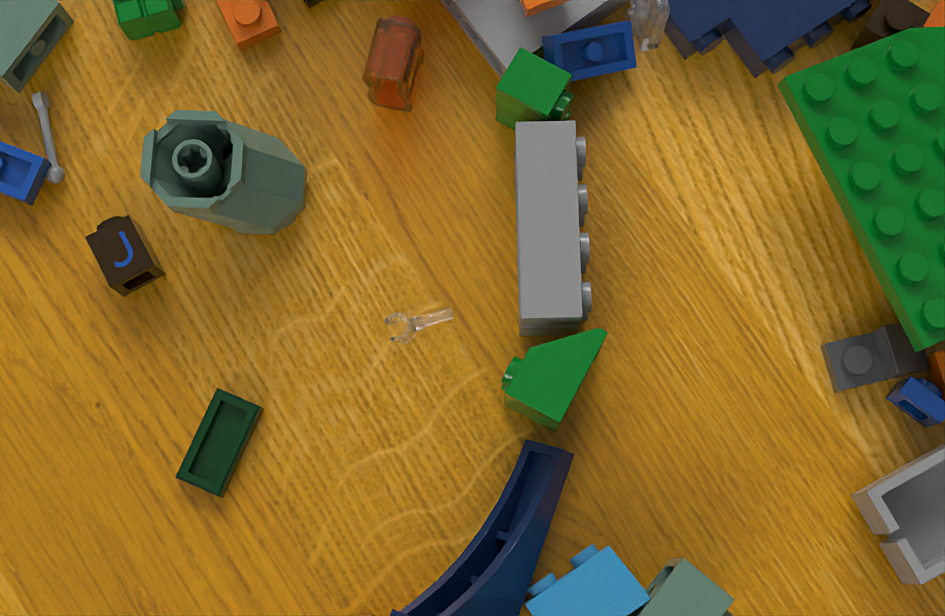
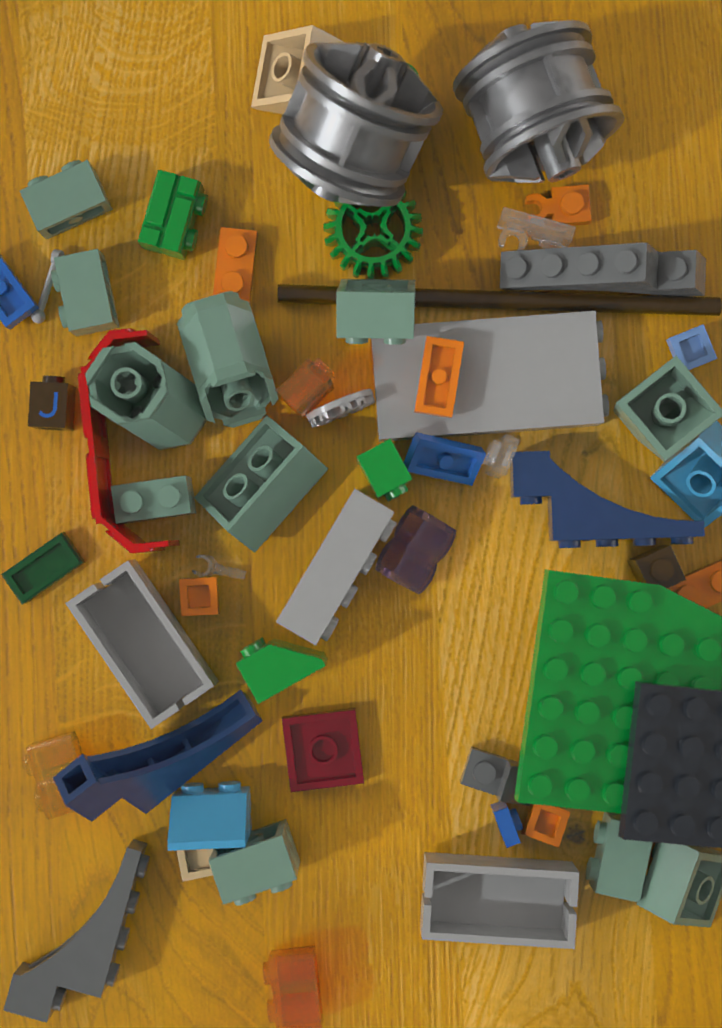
camera: 30 degrees right, 10 degrees up
(94, 114) = (85, 293): none -> sand green brick
(290, 87) = (227, 359): none -> sand green brick
(300, 286) = (153, 499): none -> sand green brick
(317, 341) = (98, 458): none -> red windscreen
(383, 447) = (142, 642): none -> light grey piece
(408, 198) = (260, 484): none -> sand green slope
(415, 363) = (199, 596): none -> orange plate
(443, 61) = (341, 407): none -> light grey wheel
(621, 163) = (415, 549): none -> brick
(661, 451) = (323, 750): none -> dark red tile

